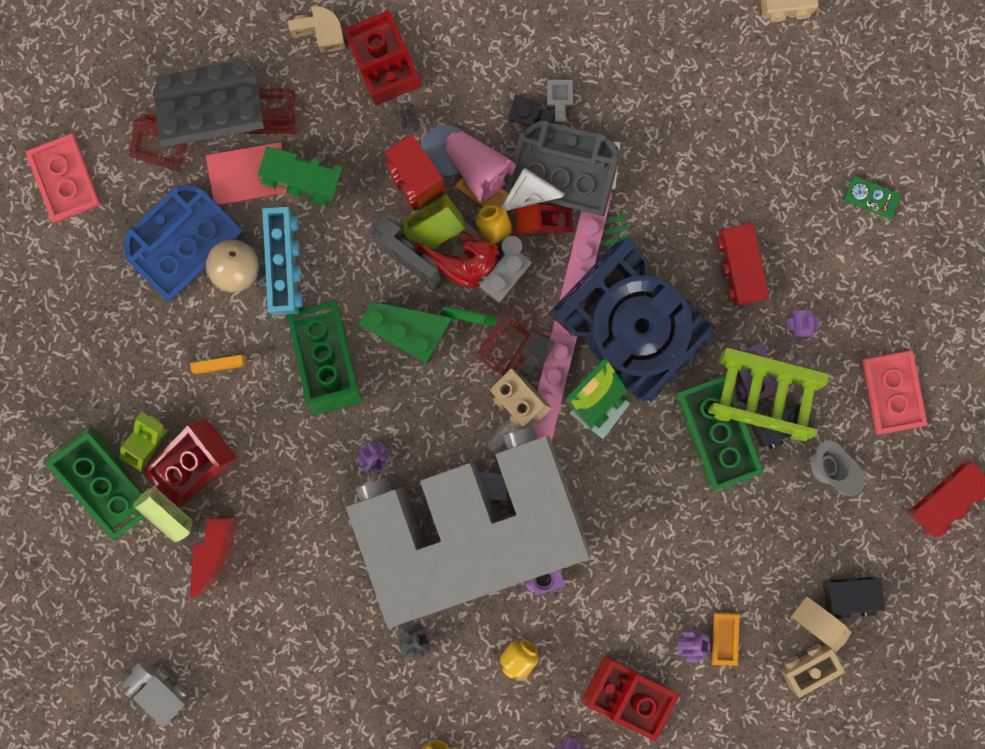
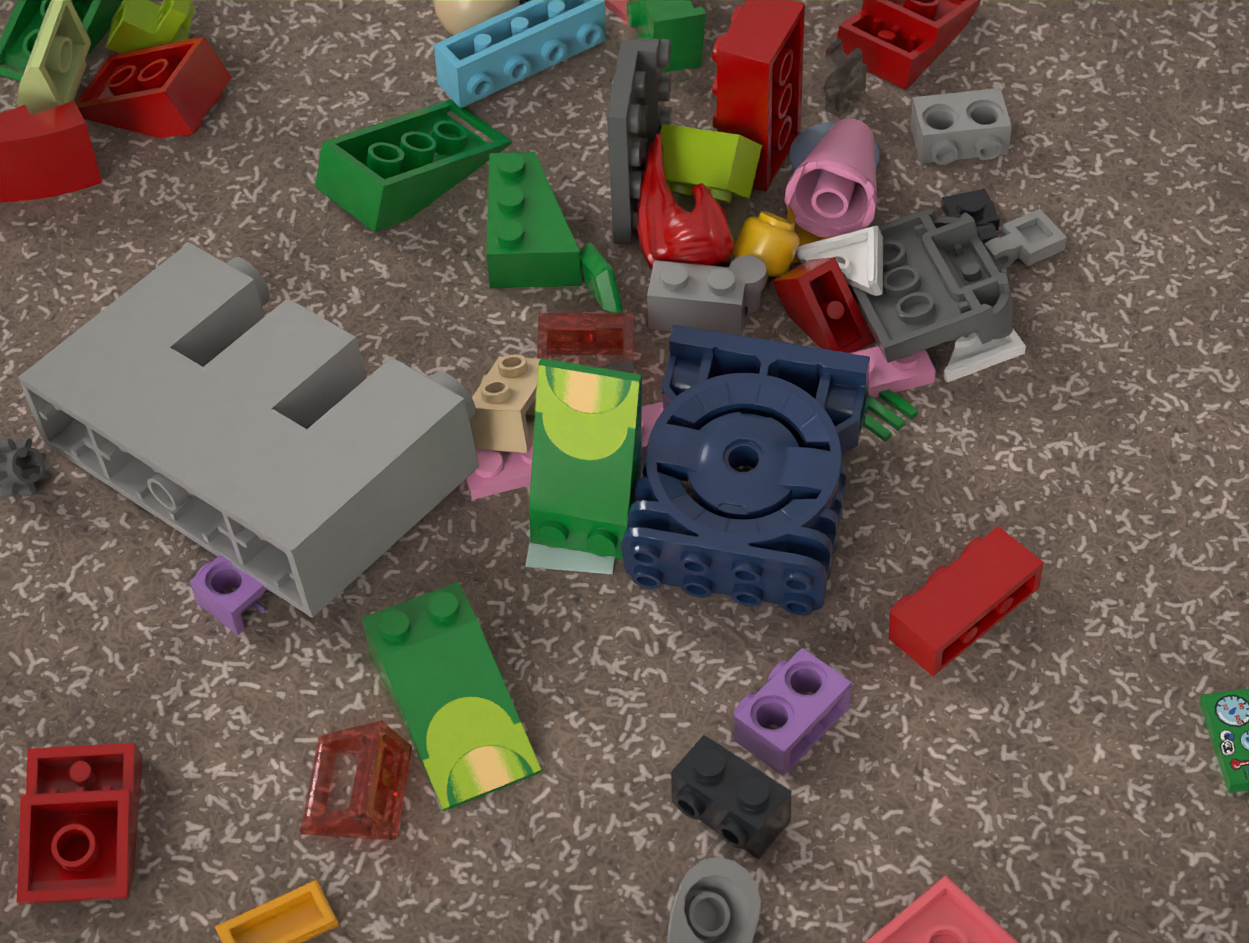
camera: 65 degrees right, 35 degrees down
(218, 364) = (321, 54): light orange tile -> none
(373, 456) = (306, 276): medium lavender gear -> none
(465, 78) = (960, 126): none -> light grey brick
(519, 659) = (64, 622): yellow head -> none
(659, 511) = (450, 695): none -> green slope
(683, 563) = (376, 788): none -> clear red tile
(693, 645) = (219, 861): medium lavender gear -> none
(720, 446) = (646, 703): green brick -> none
(761, 368) = (801, 678): lime fence -> none
(803, 323) = (934, 739): medium lavender gear -> none

